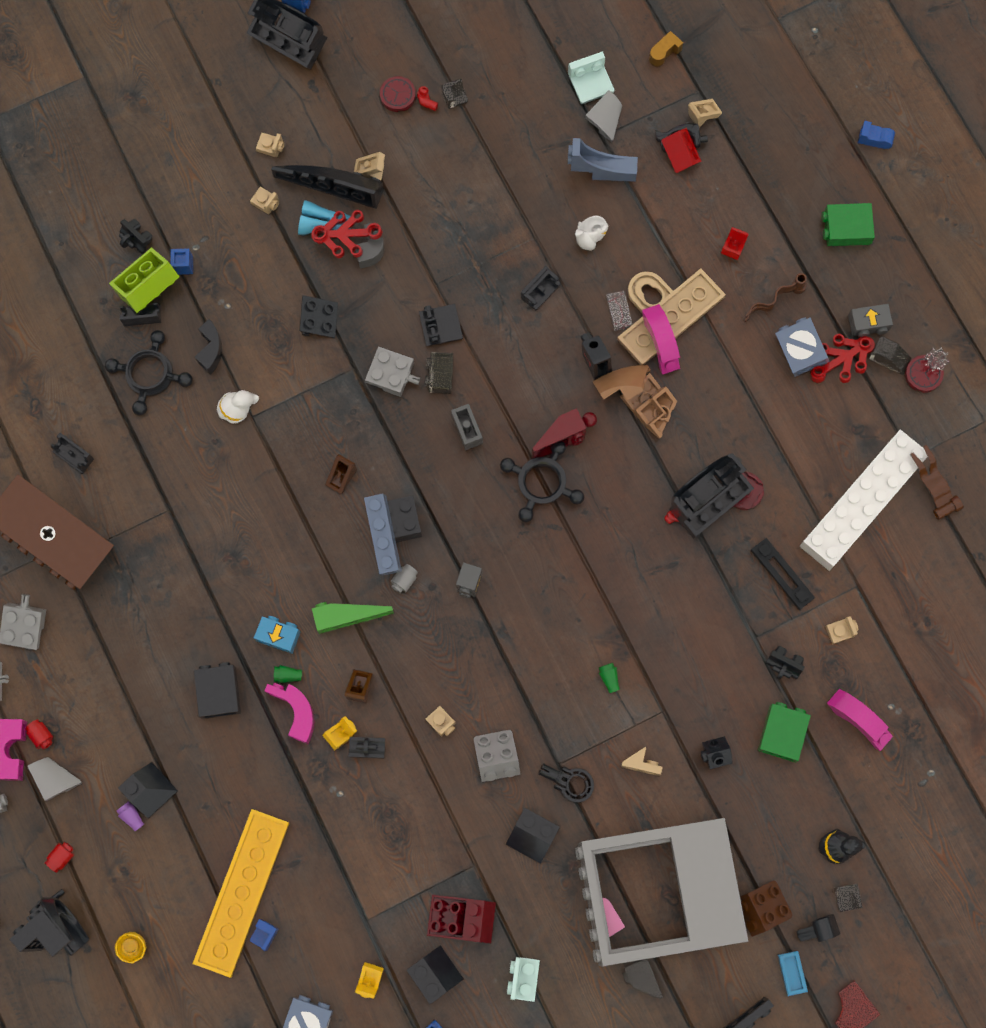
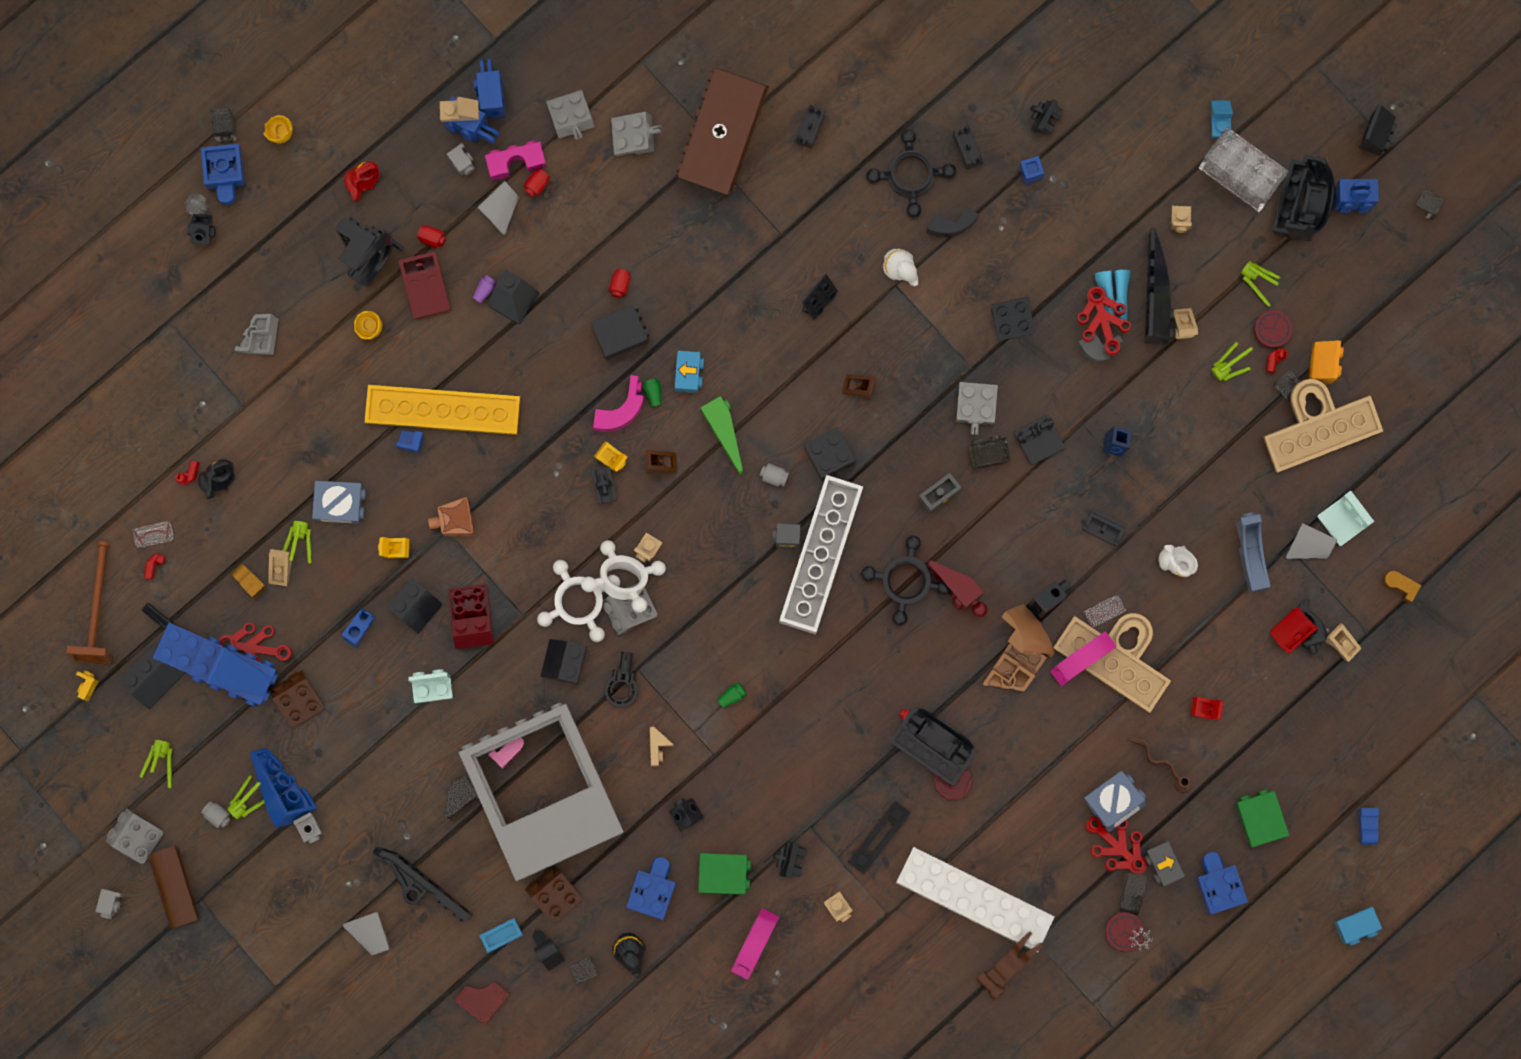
camera: 75 degrees right, 5 degrees up
(107, 876) = (424, 285): none -> dark red slope
(144, 280) = (1000, 140): lime brick -> none
(168, 678) = (619, 283): none -> red brick
(187, 85) = (1220, 117): none -> dark azure slope
(242, 74) = (1243, 169): none -> clear brick
(246, 493) = (819, 297): none -> black hinge
(265, 200) = (1120, 231): tan bracket -> none
(339, 96) = (1252, 271): none -> lime plant
(357, 910) = (454, 519): none -> torso
(382, 534) = (806, 441): sand blue brick -> none
(423, 147) = (1222, 370): none -> lime plant
(443, 54) = (1325, 361): none -> light orange slope
(450, 746) = (626, 563): none -> white piece
(463, 254) = (1117, 441): none -> dark blue brick
(495, 553) = (821, 554): none -> white brick
(506, 76) = (1320, 433): none -> tan plate
(514, 795) = (545, 619): none -> white piece
(785, 805) = (652, 890): none -> blue brick
(902, 276) = (1221, 884): none -> blue brick
(965, 169) = (1357, 926): none -> dark azure brick

